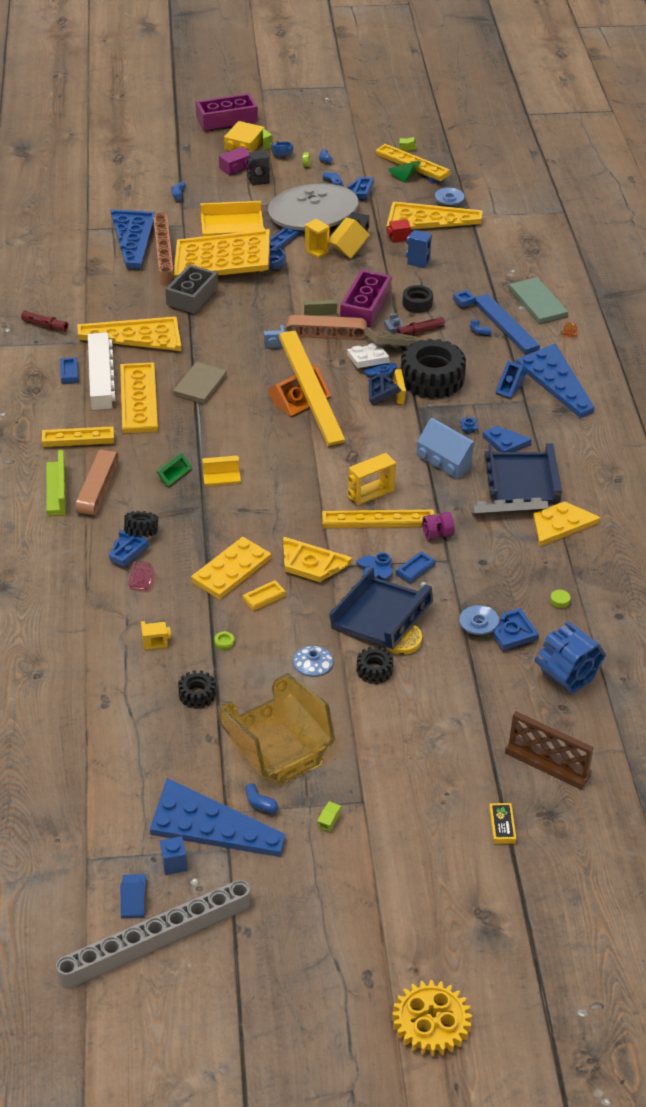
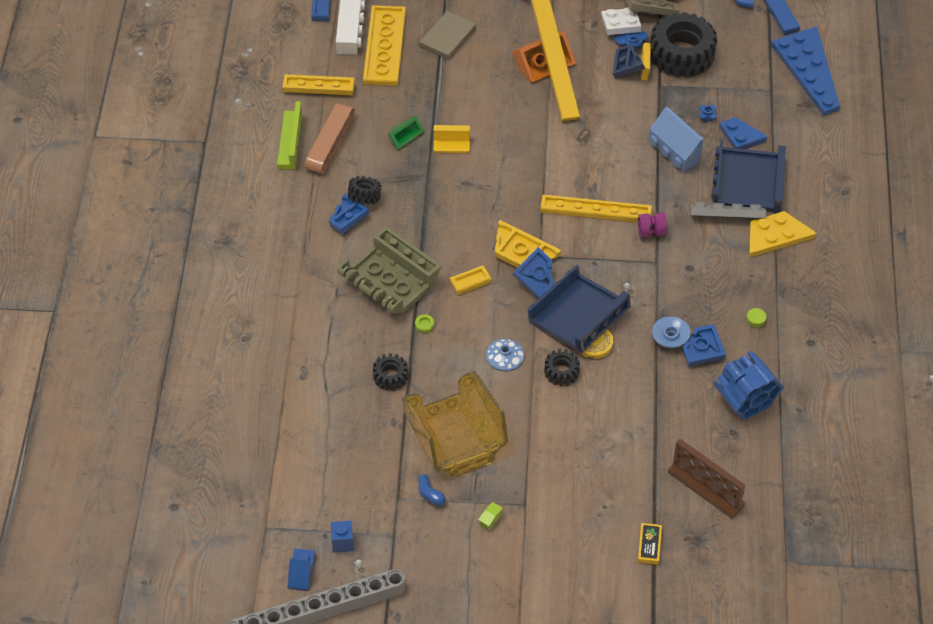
camera: 10 degrees right, 10 degrees up
(141, 575) = (356, 245): clear pink bracket -> none
(155, 635) = (360, 311): yellow brick -> none
(184, 593) = (392, 271): none -> olive slope
(211, 823) = (373, 503): blue wing -> none
(231, 568) = (451, 241): yellow plate -> none
(330, 580) = (536, 273): none -> blue plate
(381, 563) = (587, 260): blue plate -> none
(385, 484) = (610, 171): yellow window -> none
(415, 567) = (622, 266): blue tile -> none
(511, 379) = (761, 65): blue slope -> none
(570, 329) = (836, 10): clear orange plate -> none

